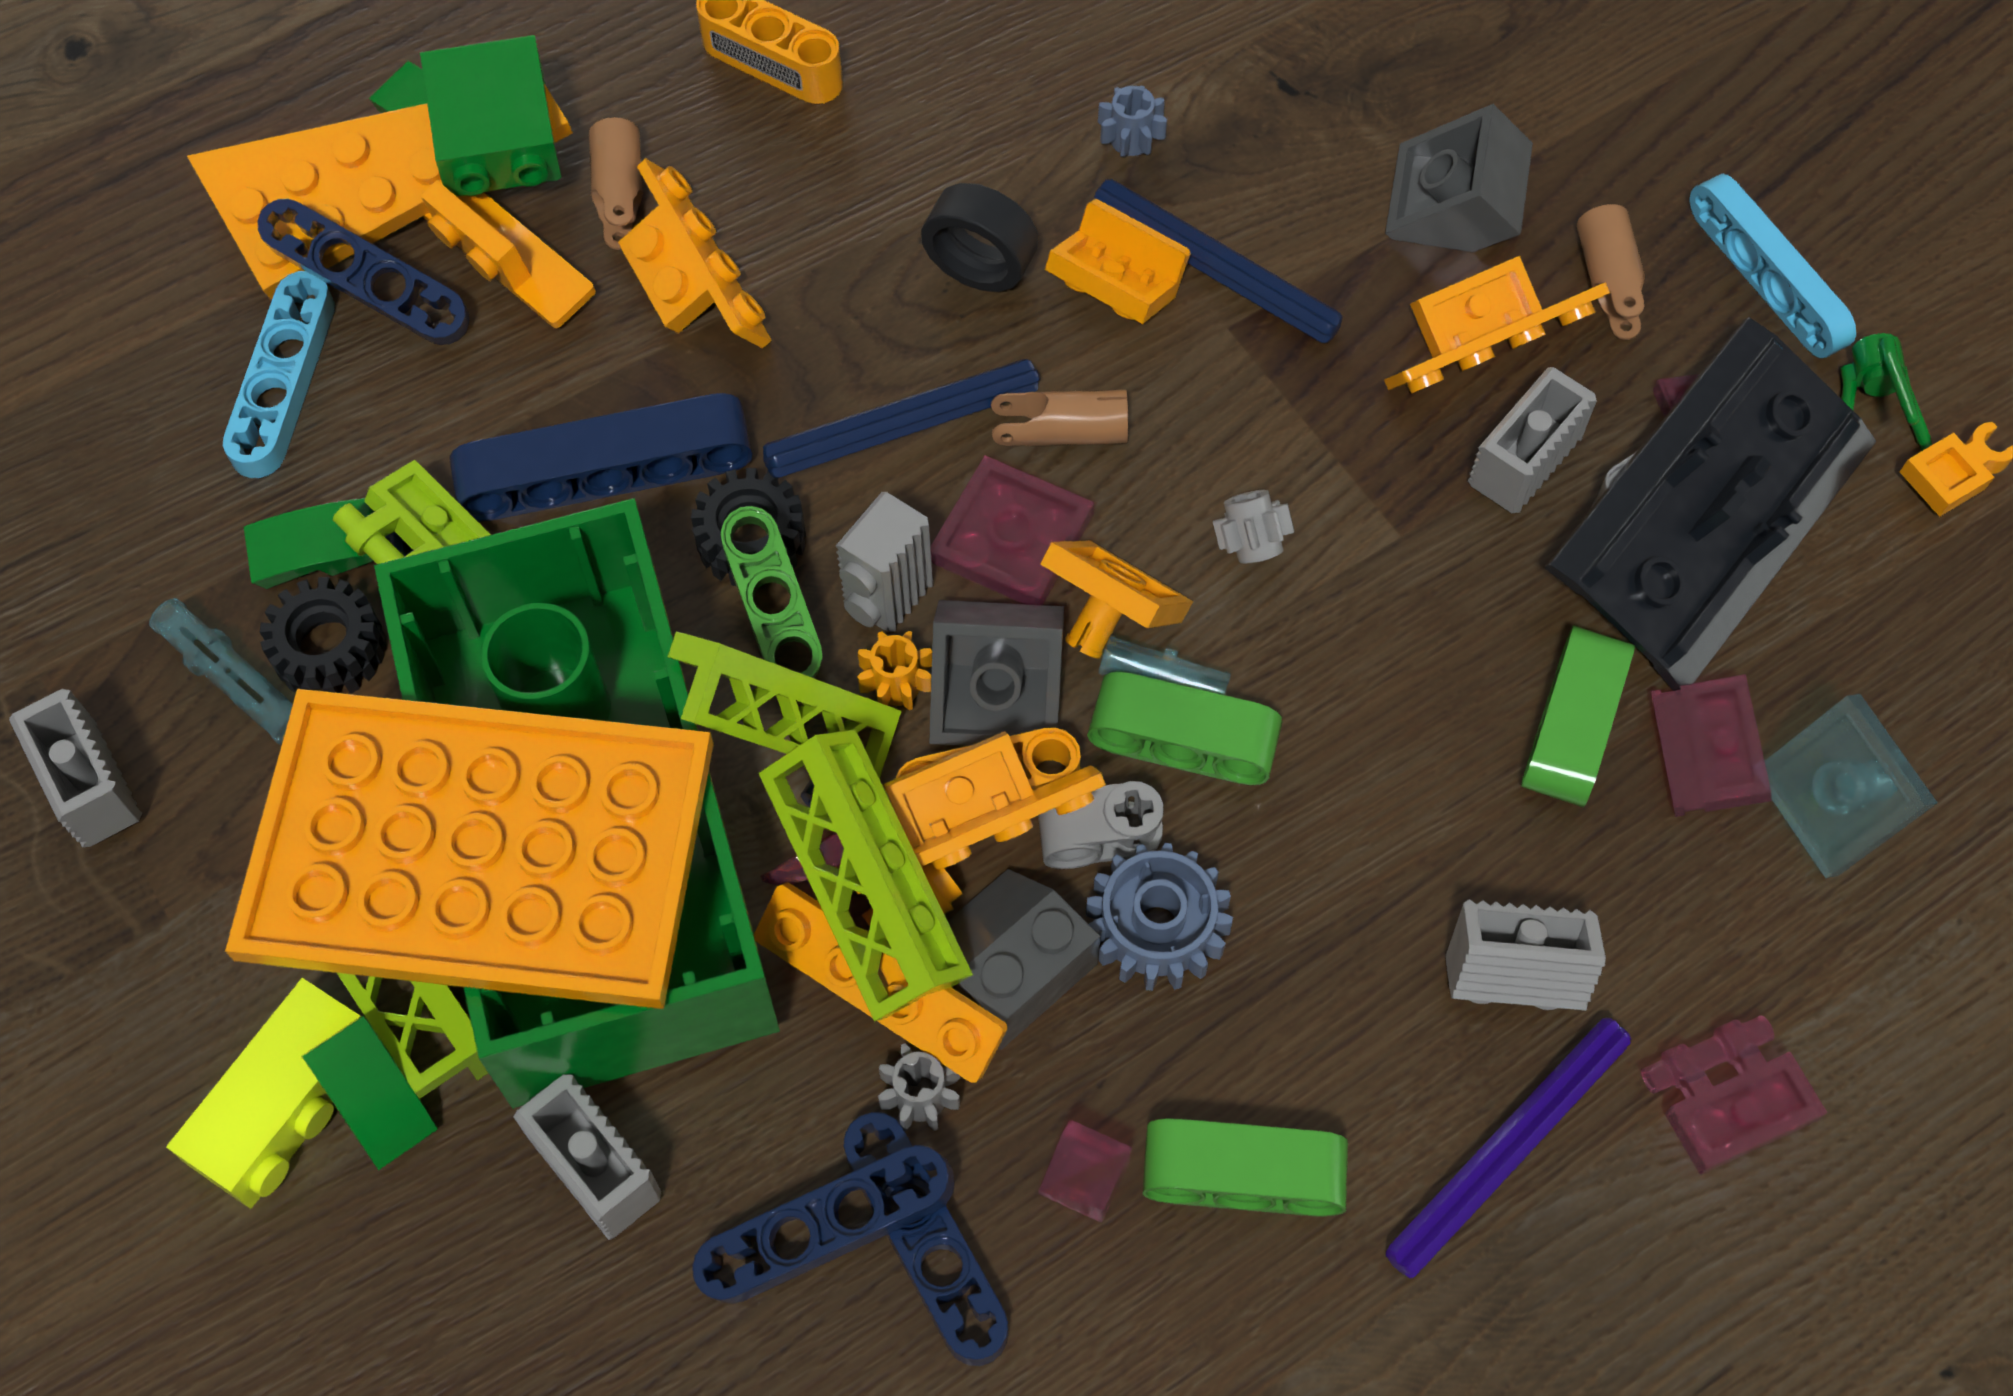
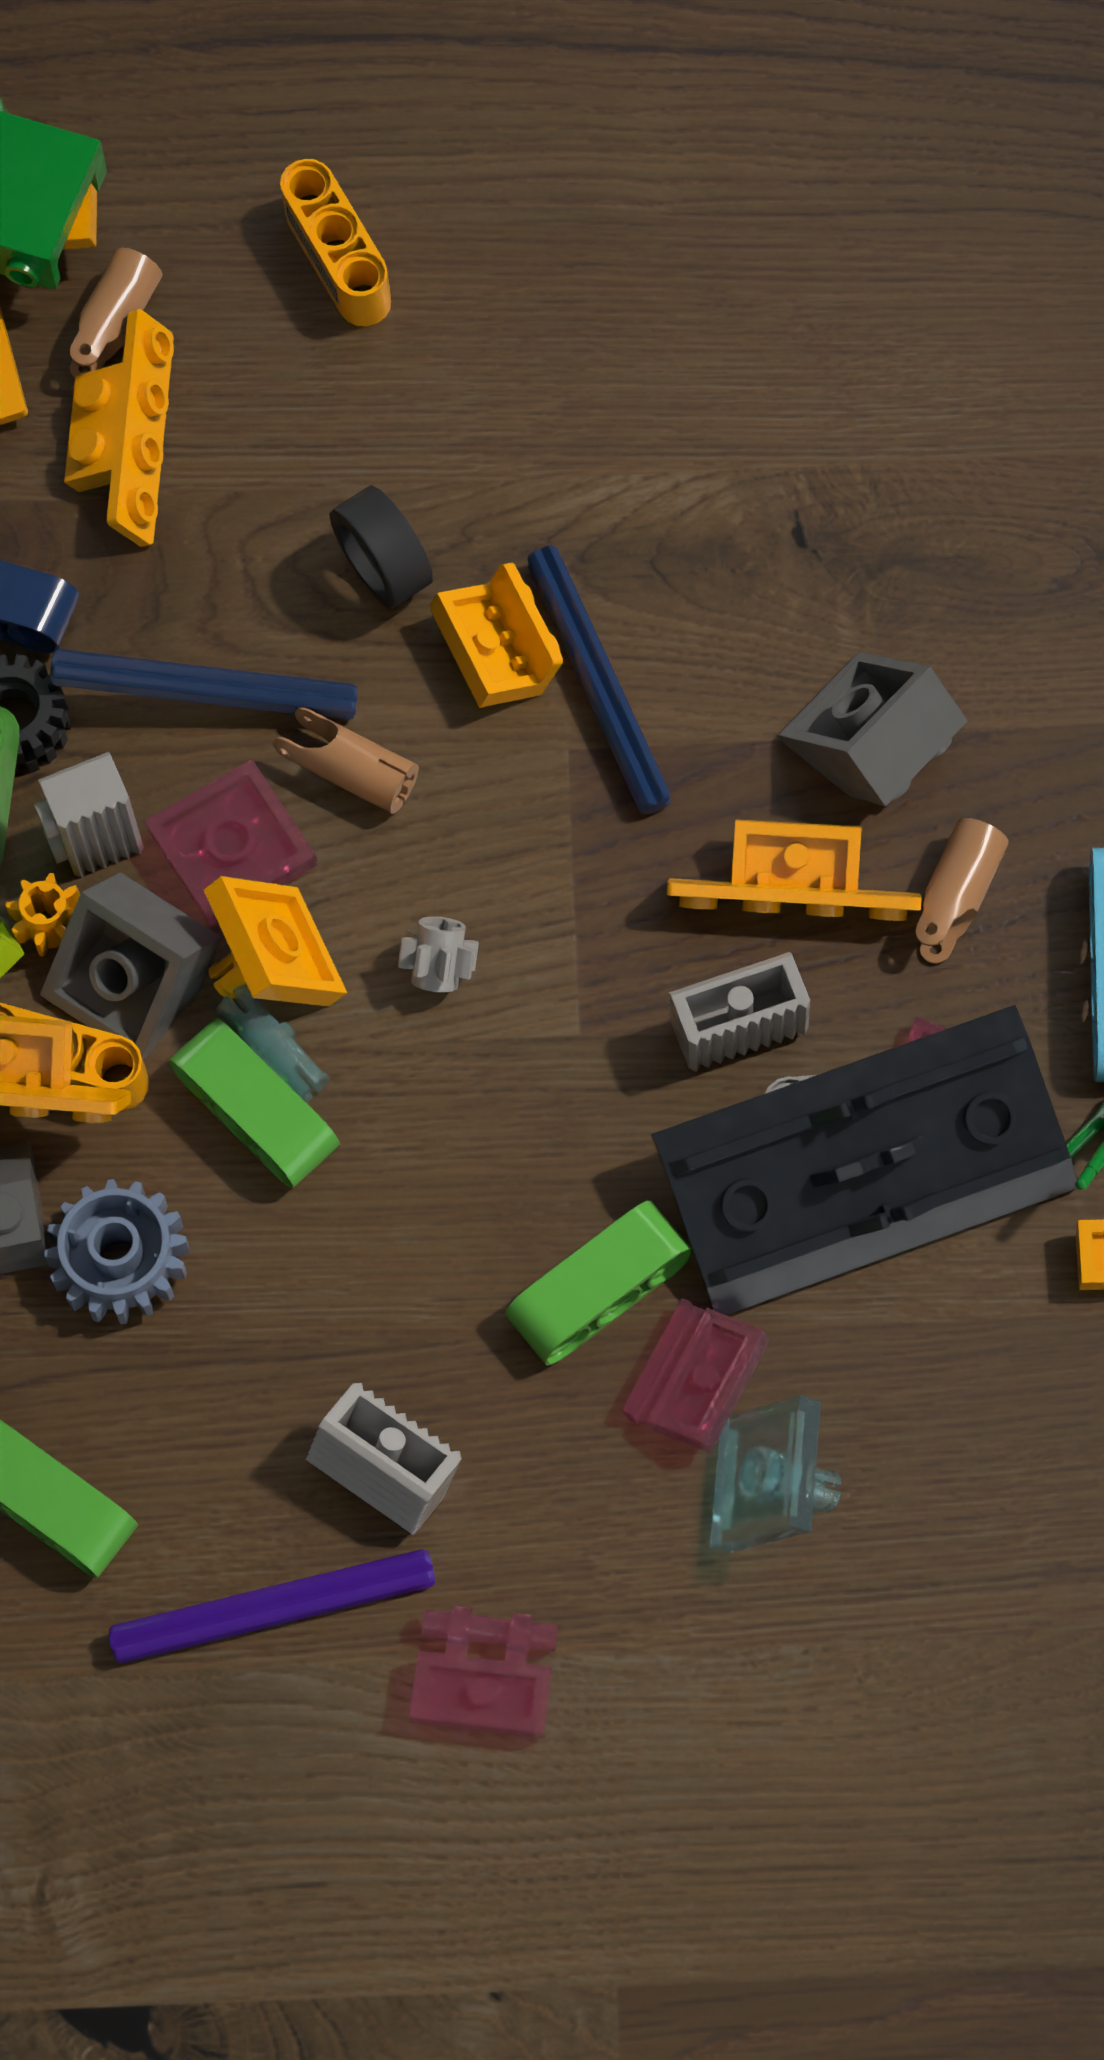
camera: 35 degrees right, 5 degrees up
(1102, 827) = (120, 1147): light grey piece -> none
(1132, 120) = (614, 497): sand blue gear -> none

